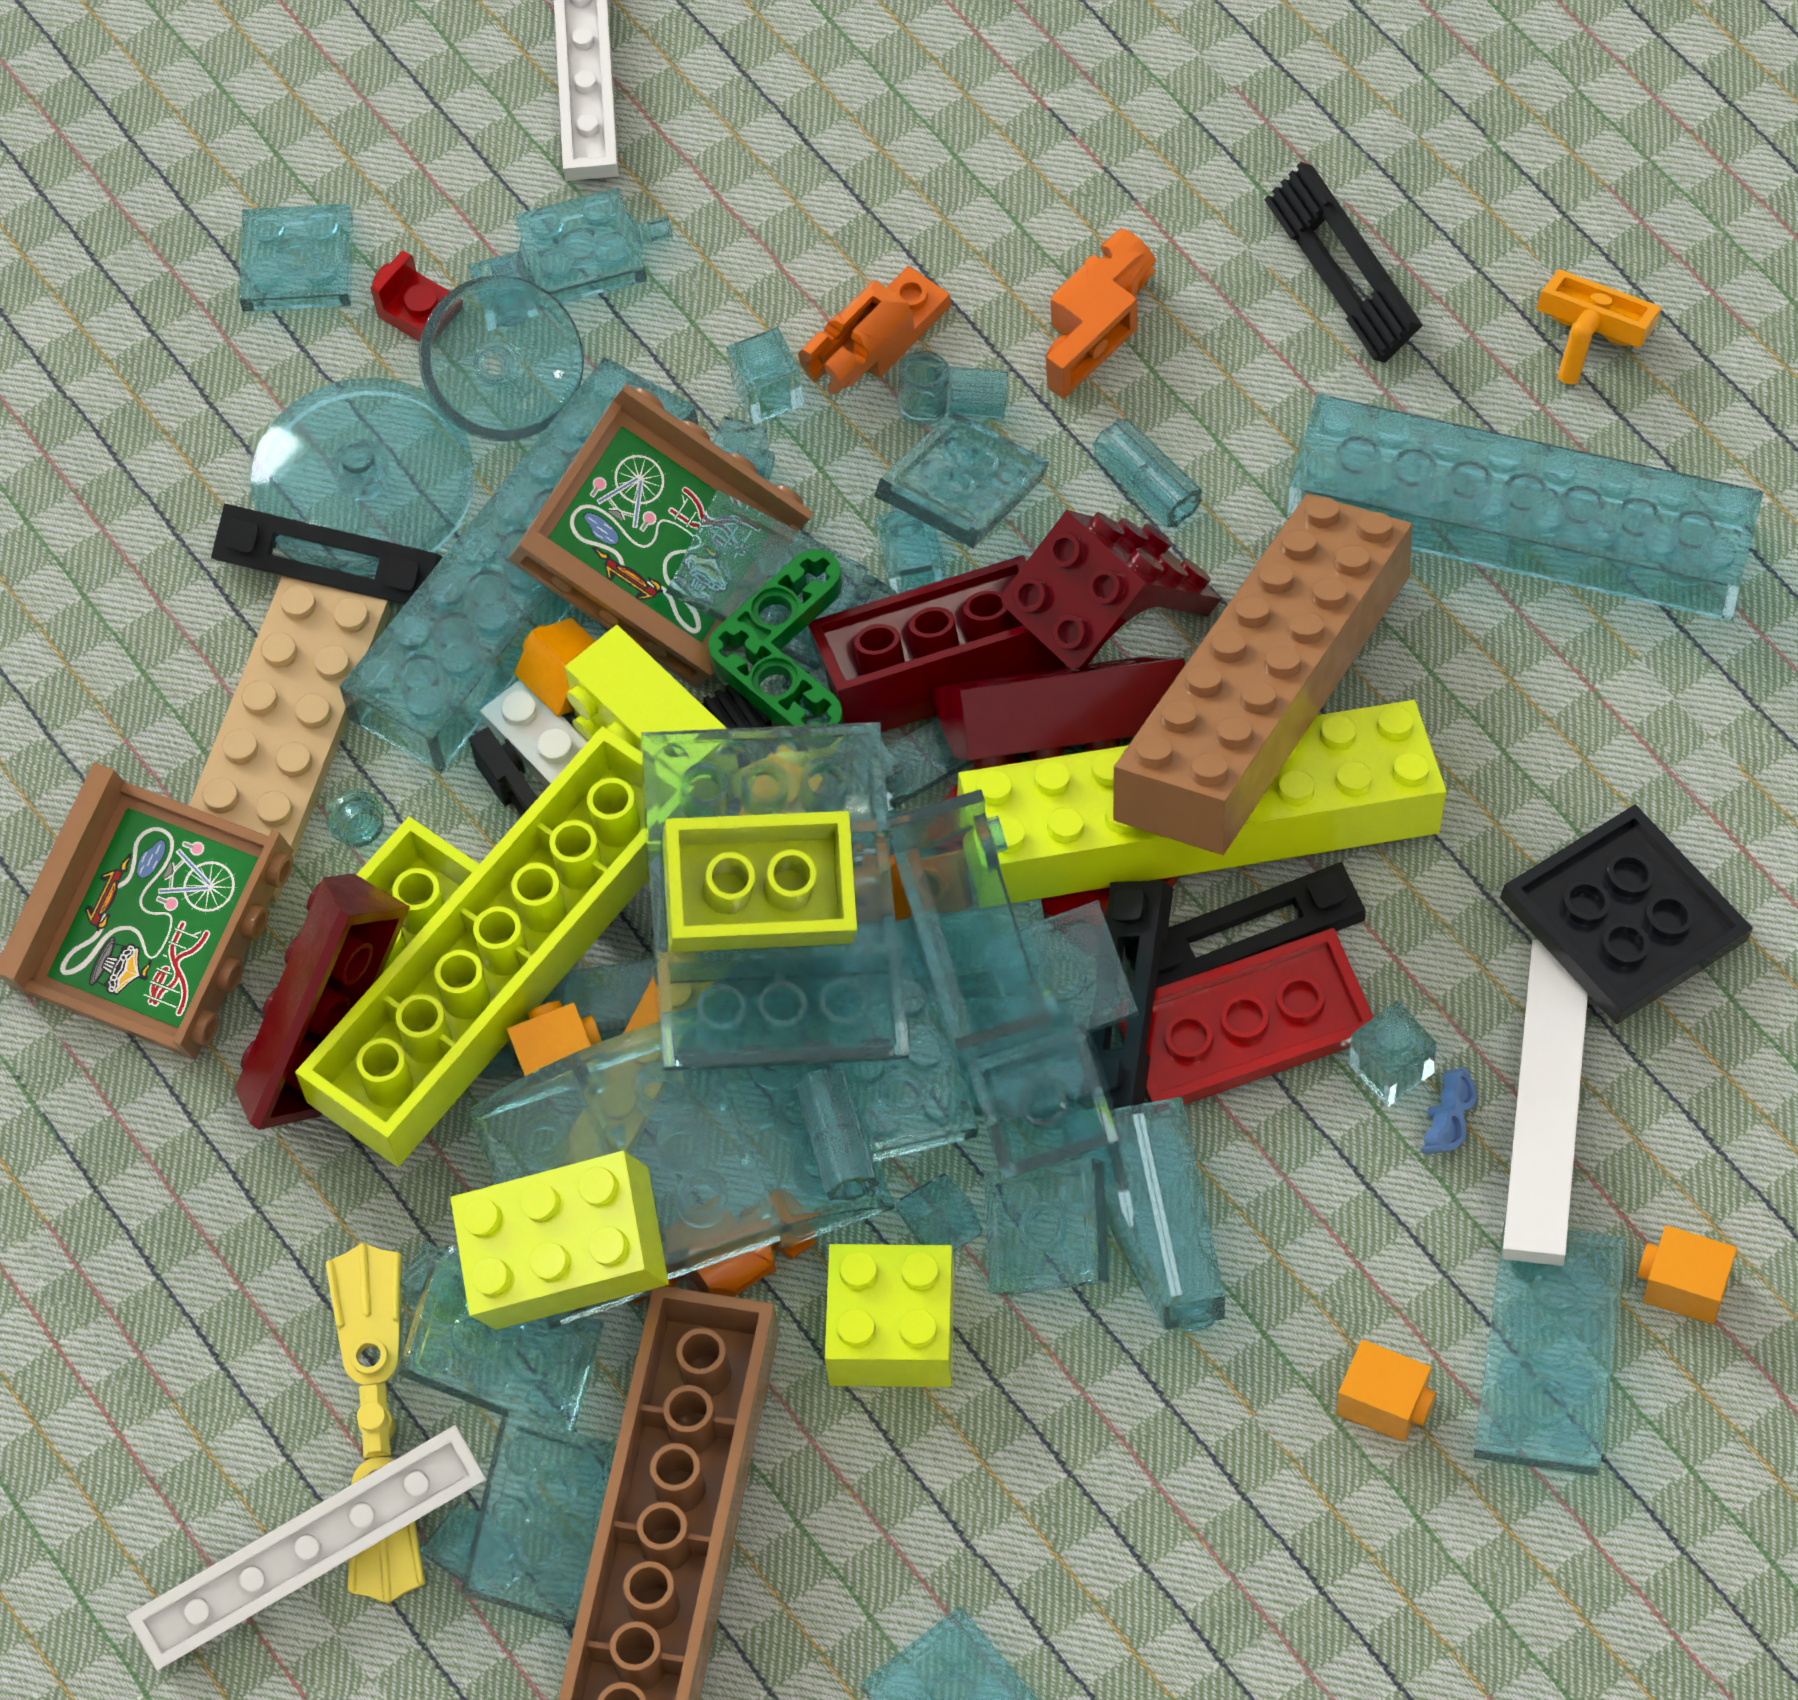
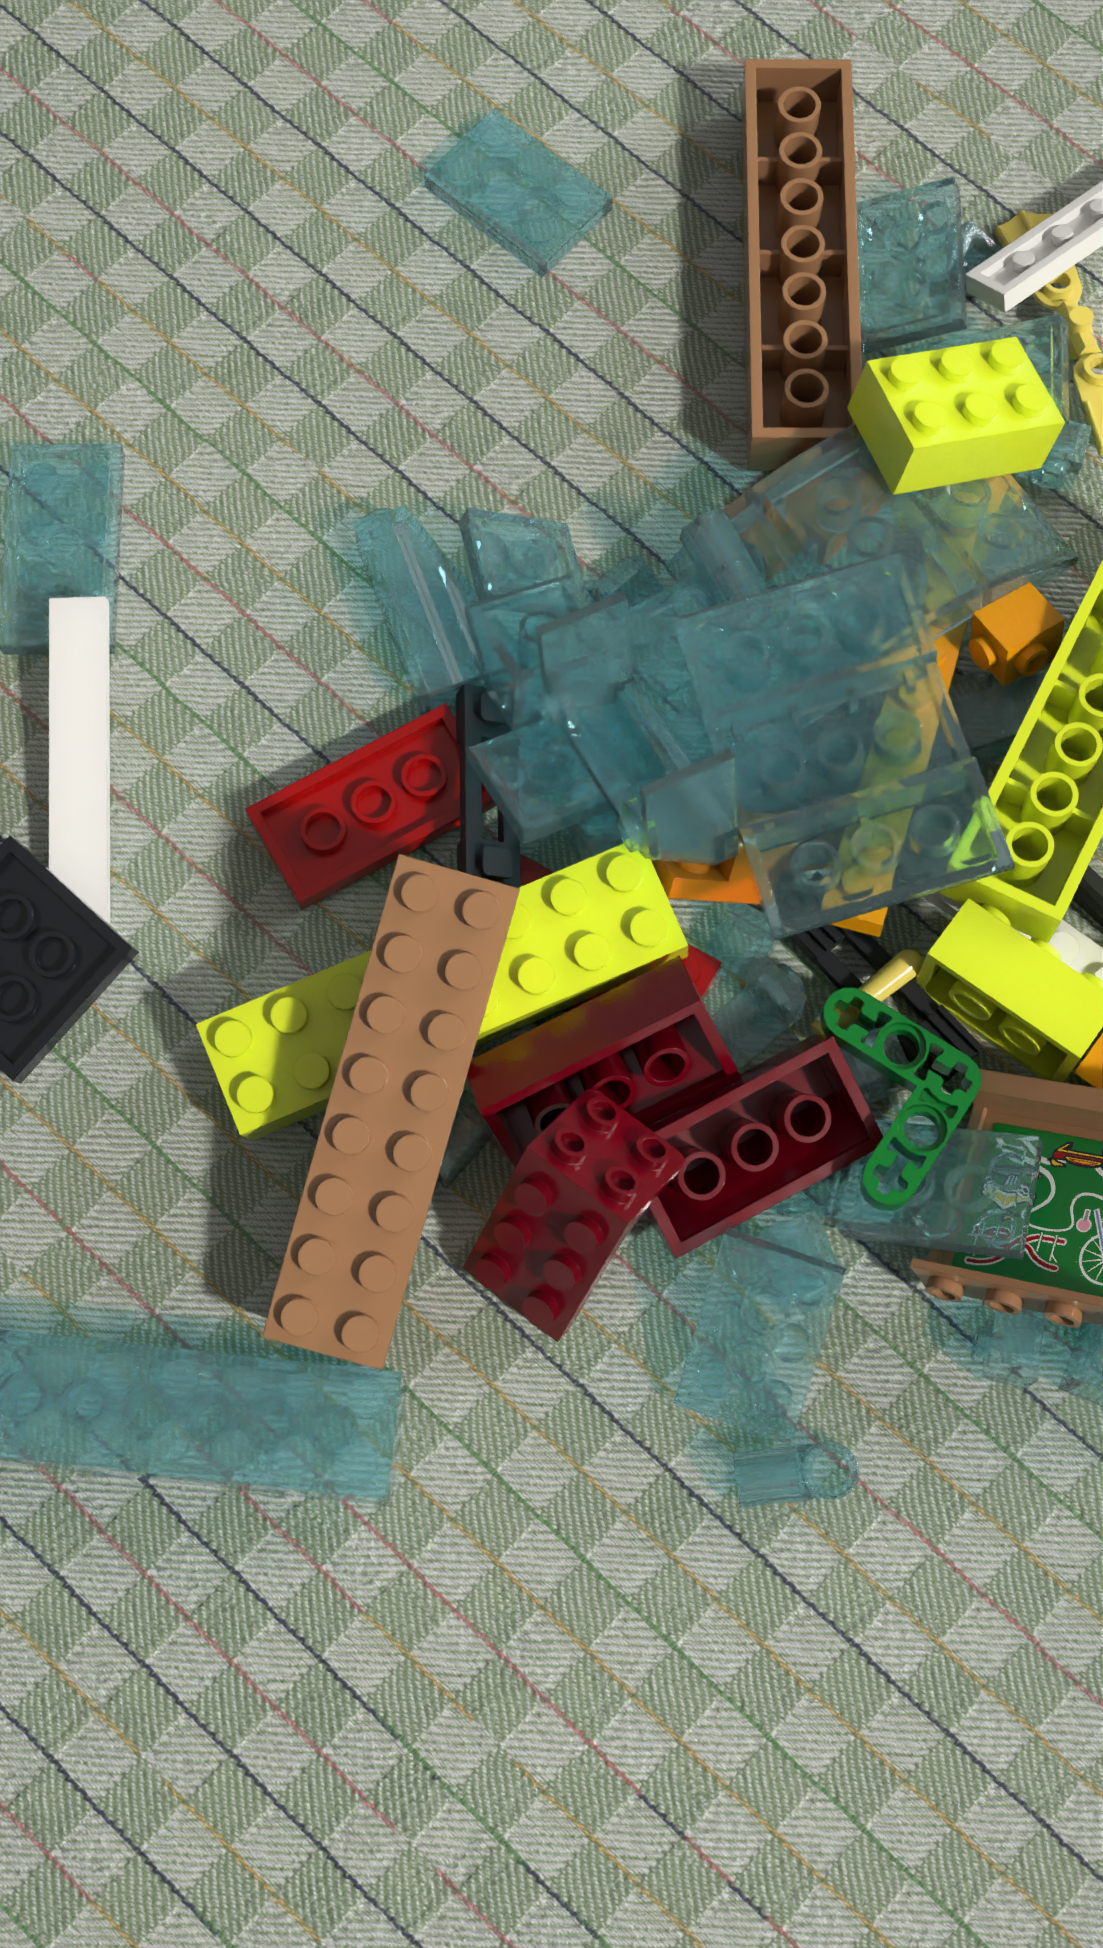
camera: 165 degrees right, 10 degrees up
(759, 881) = (853, 715): neon yellow brick -> none
(765, 375) = (1008, 1456): clear light blue brick -> none
(874, 330) = (898, 1544): orange plate -> none
(890, 1315) = (648, 476): neon yellow brick -> none
(1096, 310) = (660, 1610): orange plate -> none
(1147, 472) = (564, 1403): clear light blue axle -> none
(1323, 902) = (313, 940): black container -> none
(1379, 322) = (443, 1795): black container -> none
(1386, 1391) = (203, 484): light orange brick -> none
(1392, 1053) = (227, 783): clear light blue brick -> none
(1448, 1119) = (167, 758): medium blue piece -> none
(1593, 309) = (84, 1692): light orange plate -> none

